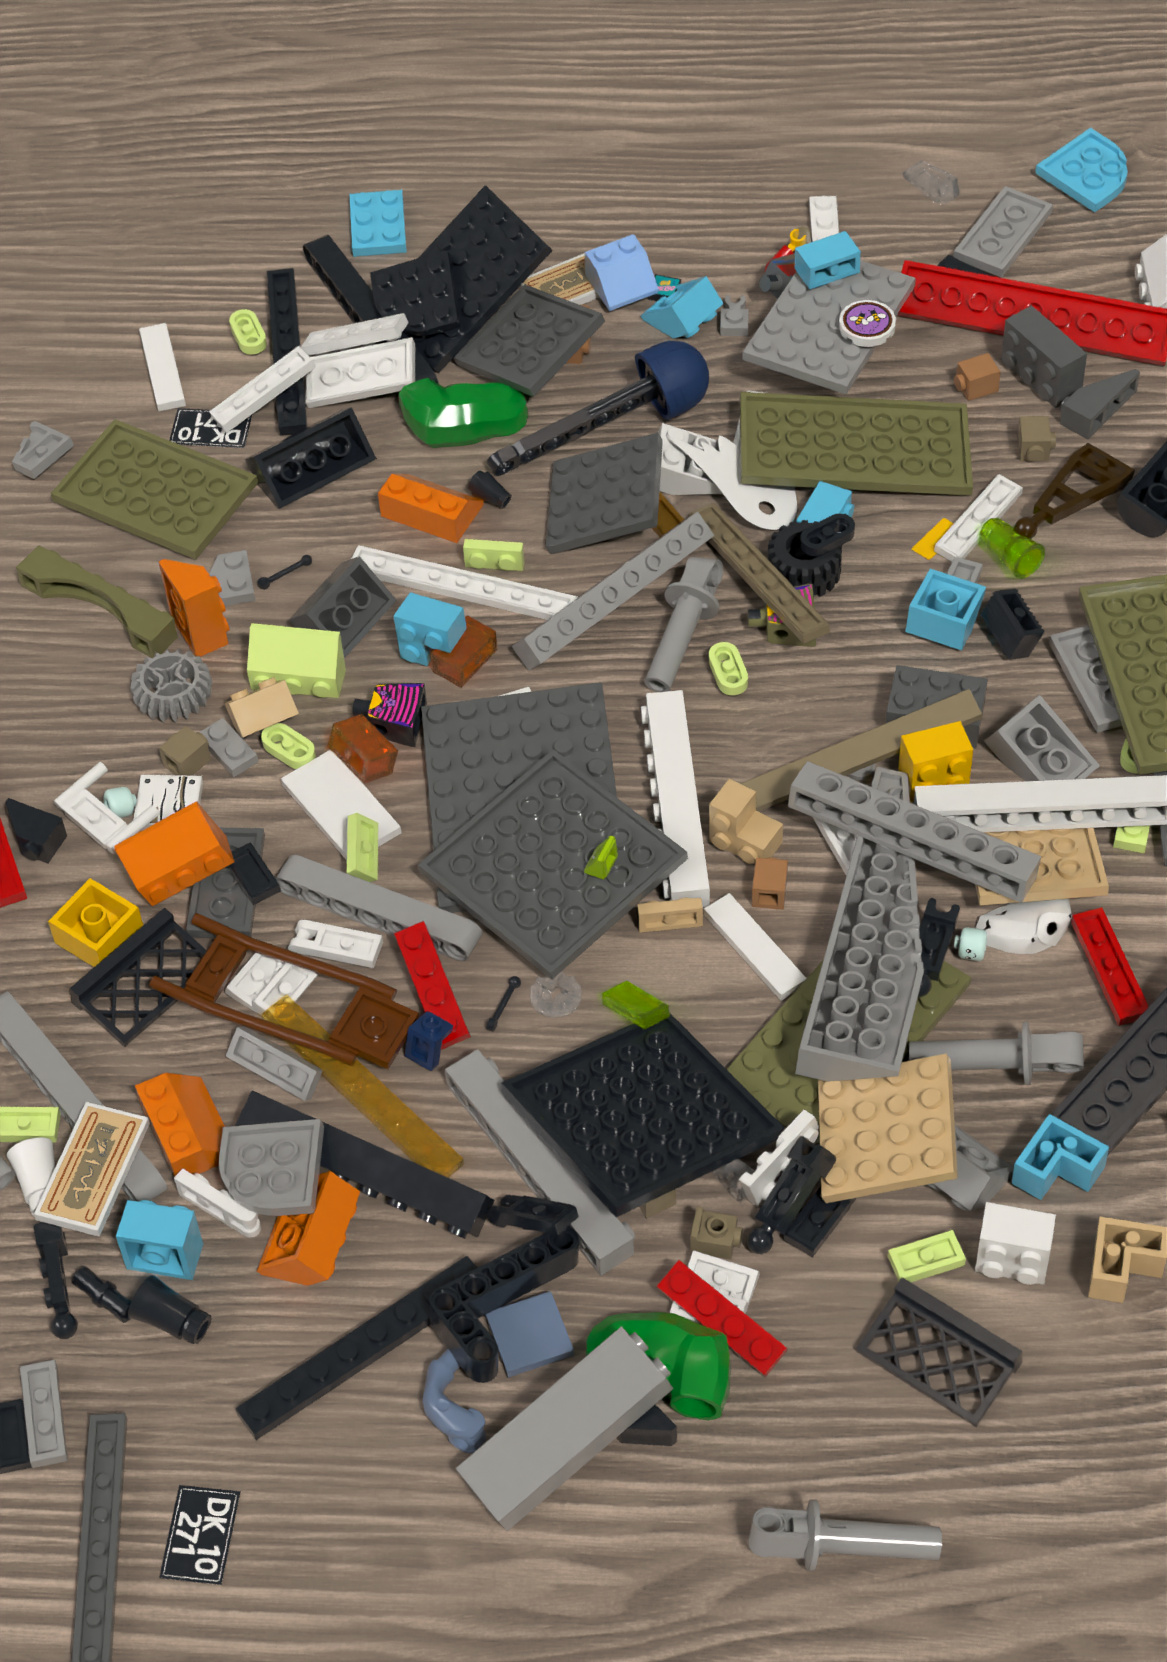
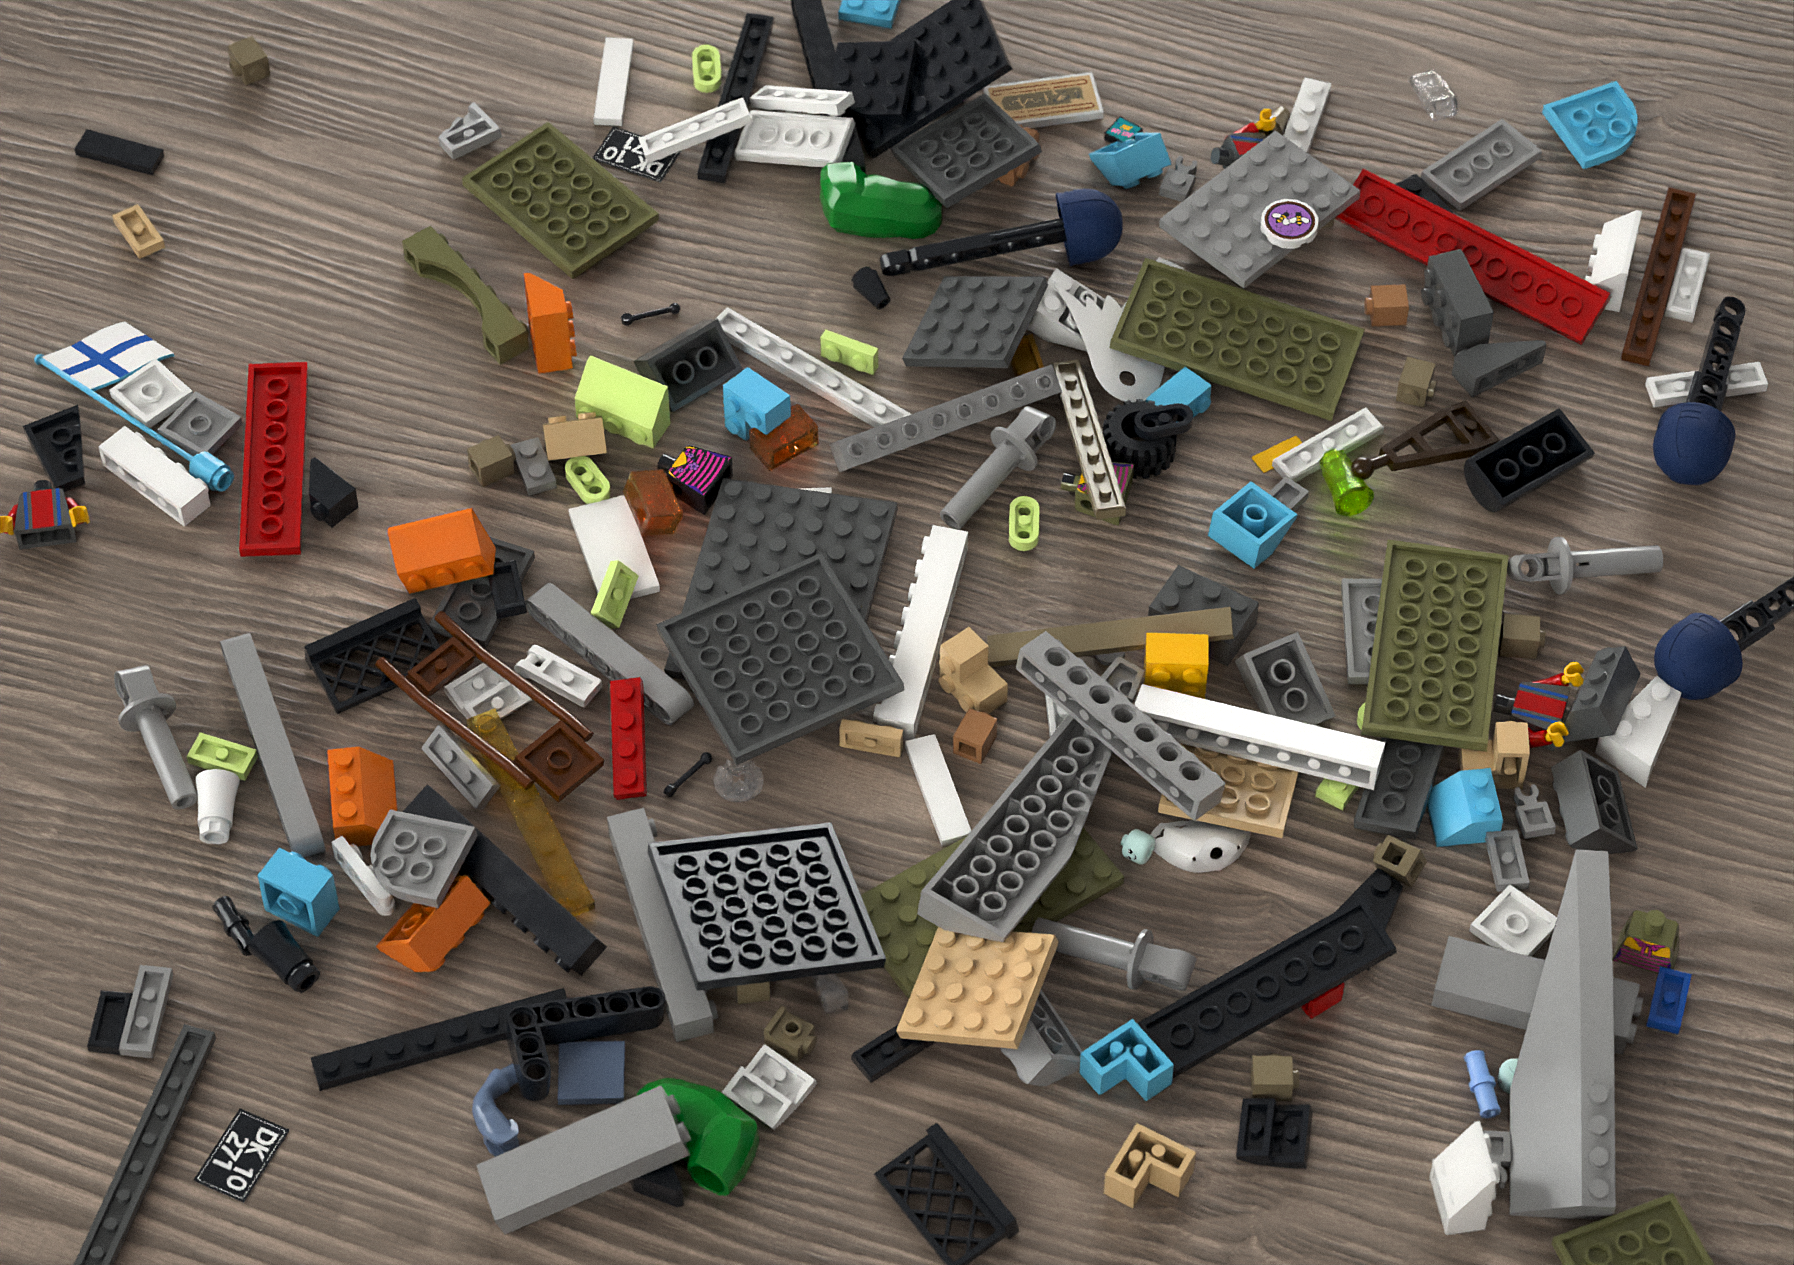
camera: 15 degrees right, 0 degrees up
(52, 1246) = (206, 871): black plate -> none
(92, 1169) = (263, 812): tile -> none
(94, 922) = (348, 592): yellow brick -> none
(97, 818) = (387, 495): white plate -> none
(120, 801) = (415, 489): light aqua piece -> none
(167, 794) = (459, 492): white tile -> none
(169, 677) = (503, 386): light grey gear -> none
(234, 577) = (597, 307): light grey wing -> none
(311, 458) = (716, 210): black slope -> none
(426, 1039) = (601, 786): dark blue bracket -> none
(427, 506) = (808, 287): orange slope -> none
(532, 1214) = (632, 968): black hinge -> none
(602, 858) = (822, 668): lime slope -> none
(620, 272) = (1083, 106): light blue slope -> none
(635, 1004) = (804, 810): clear neon green tile -> none
(718, 1313) = (765, 1109): red plate -> none
(772, 1165) = (864, 991): white wing -> none
(790, 1192) = (869, 1018): black plate -> none
(827, 260) = (1276, 149): medium azure brick -> none
(927, 1257) = (971, 1113): yellowish green plate -> none
(935, 936) = (1098, 834): black plate -> none
(1012, 623) = (1309, 556): black brick -> none
(1015, 1243) = (1052, 1124): white brick -> none
(1110, 965) = (1258, 901): red plate -> none

